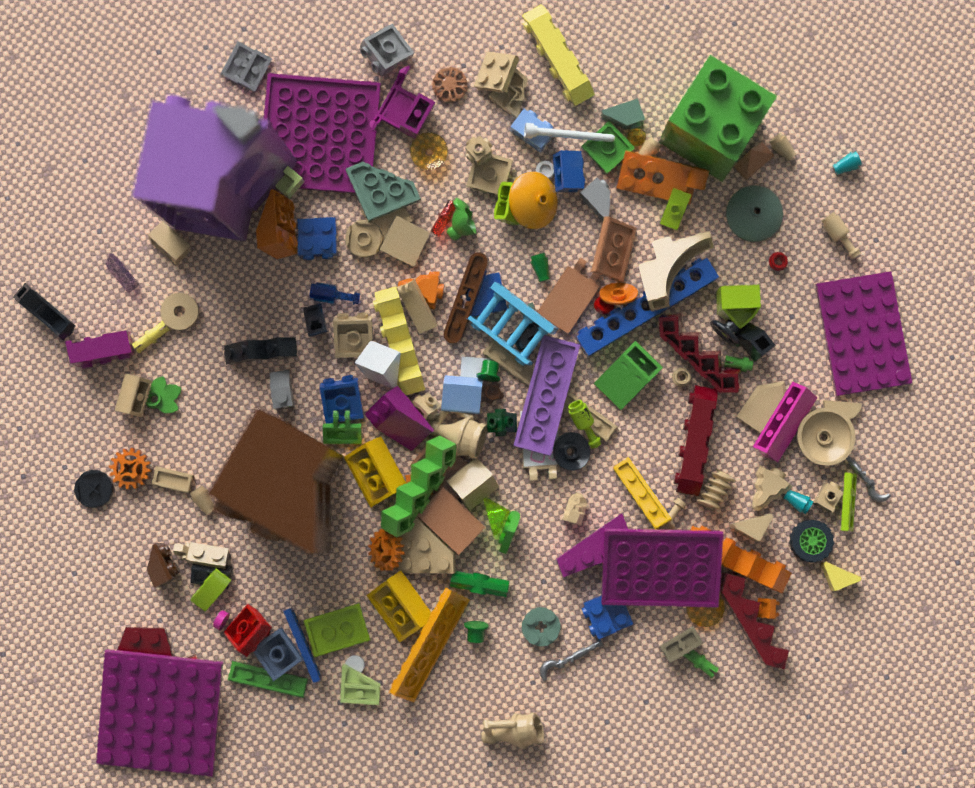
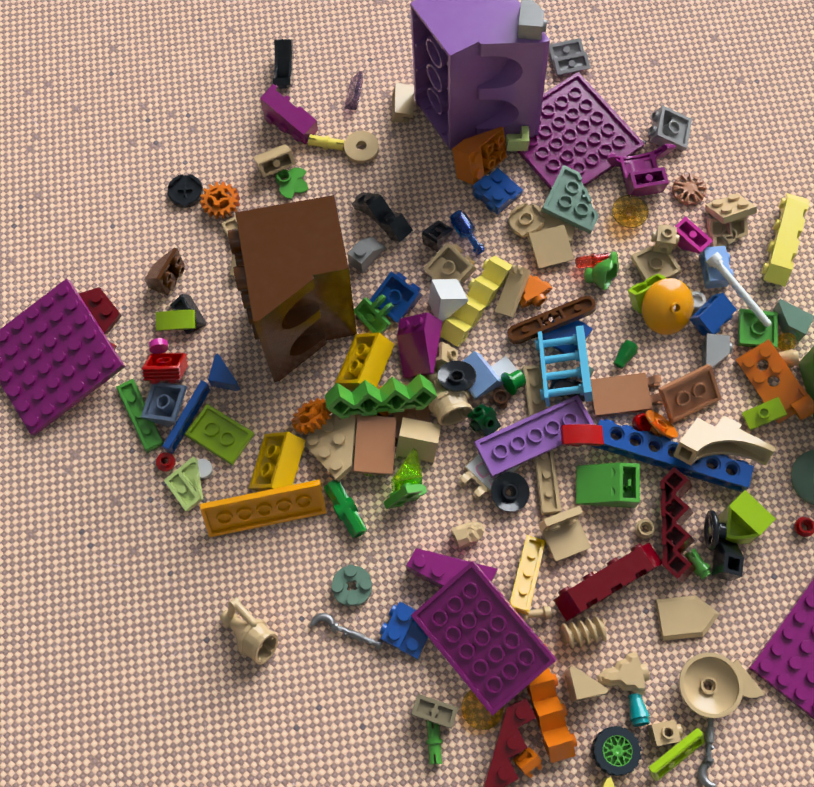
camera: 50 degrees right, 15 degrees down
(202, 554) = (198, 295): tan hinge -> none
(290, 590) = (221, 376): none -> blue slope
(329, 684) = (165, 467): none -> red plate
(444, 411) = (456, 376): none -> black dish
(476, 631) = (305, 536): green piece -> none
(494, 127) = (691, 237): none -> dark pink slope
(578, 362) = (581, 434): none -> red slope
(583, 421) = (542, 479): lime piece -> none
(637, 440) = (564, 534): none -> tan bracket
(785, 421) = (690, 640): dark pink brick -> none

